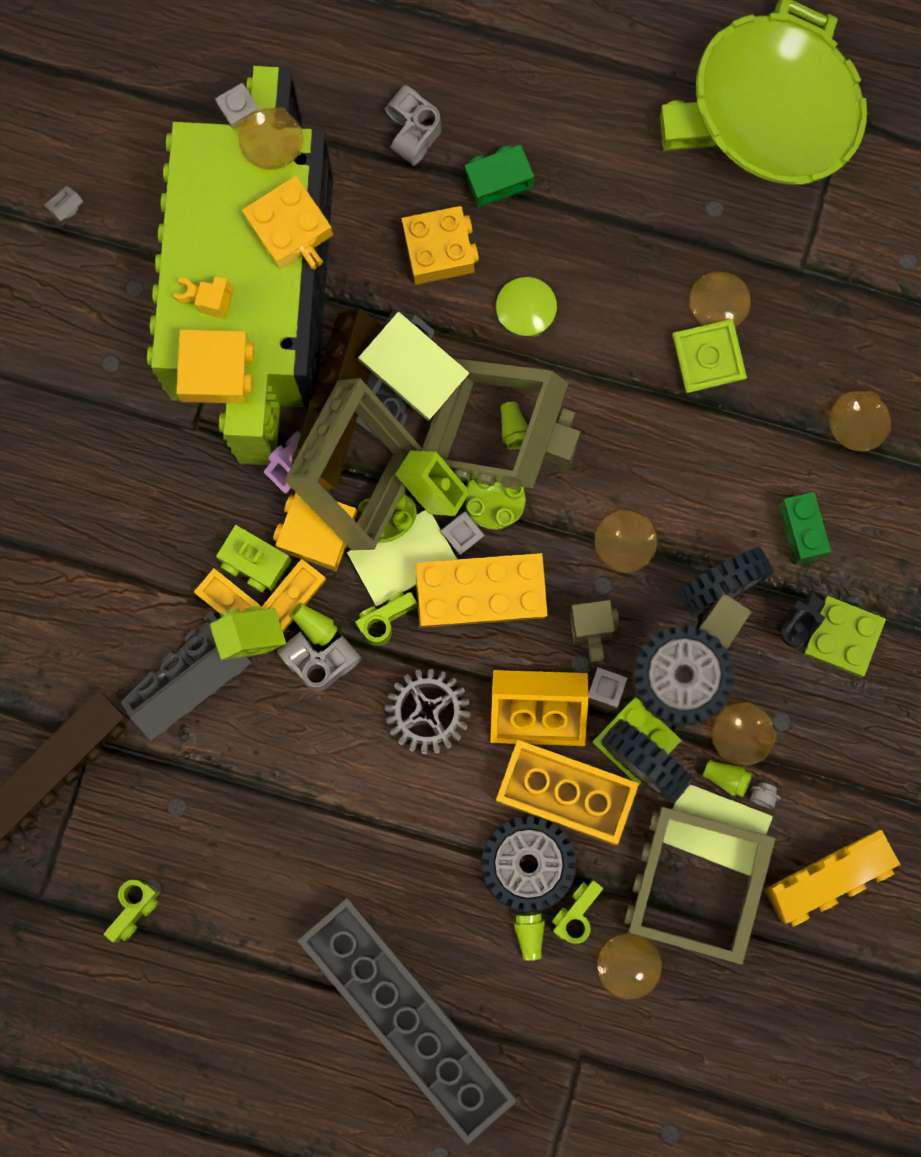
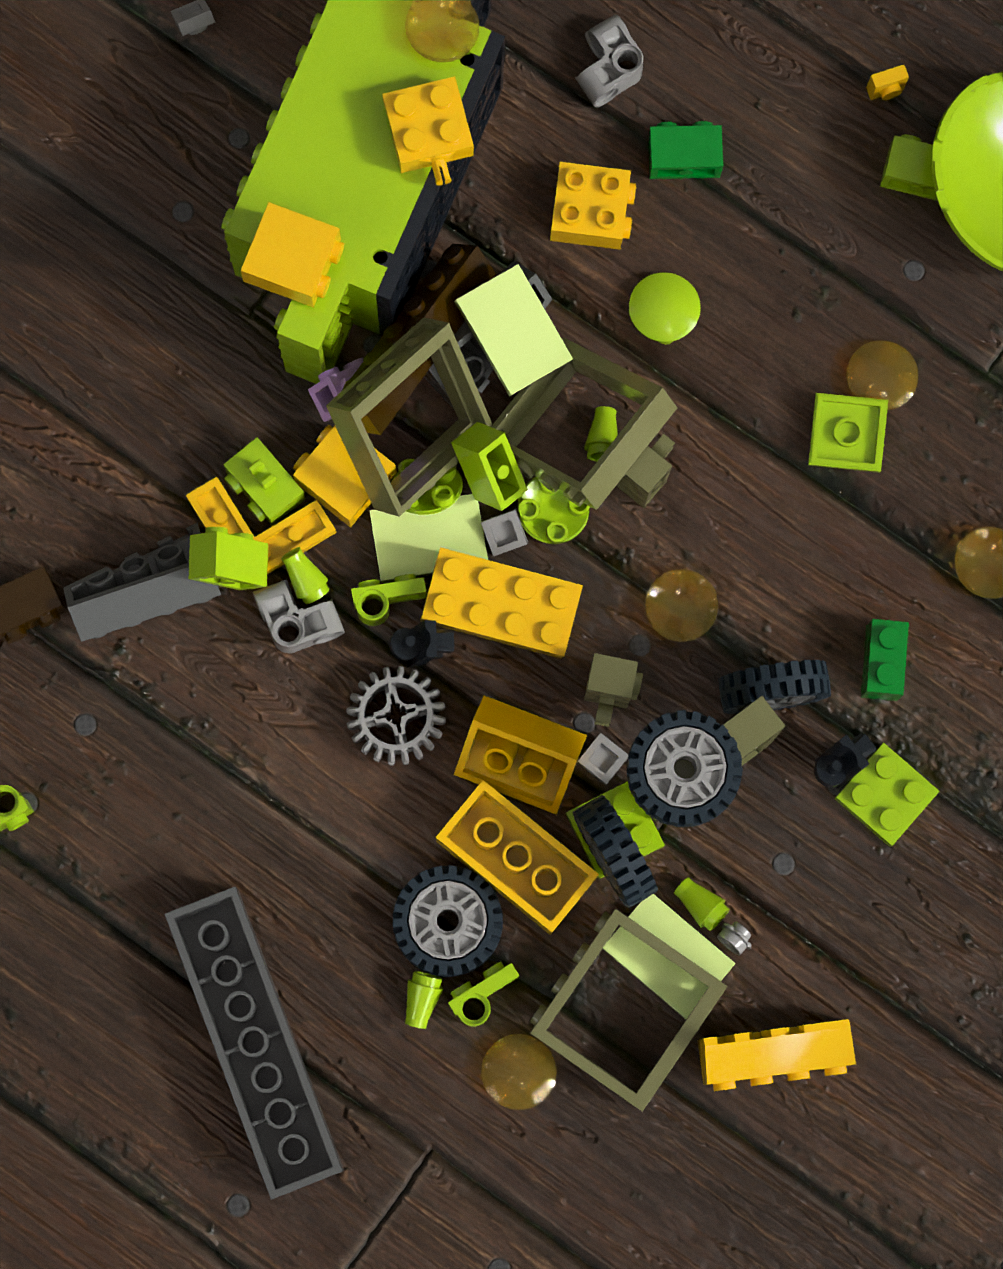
camera: 10 degrees right, 0 degrees up
(208, 297) = (312, 177): yellow piece -> none
(428, 646) = (421, 643): none -> black hips
(641, 66) = (887, 83): none -> yellow plate
(743, 734) = (736, 862): clear yellow dish -> none

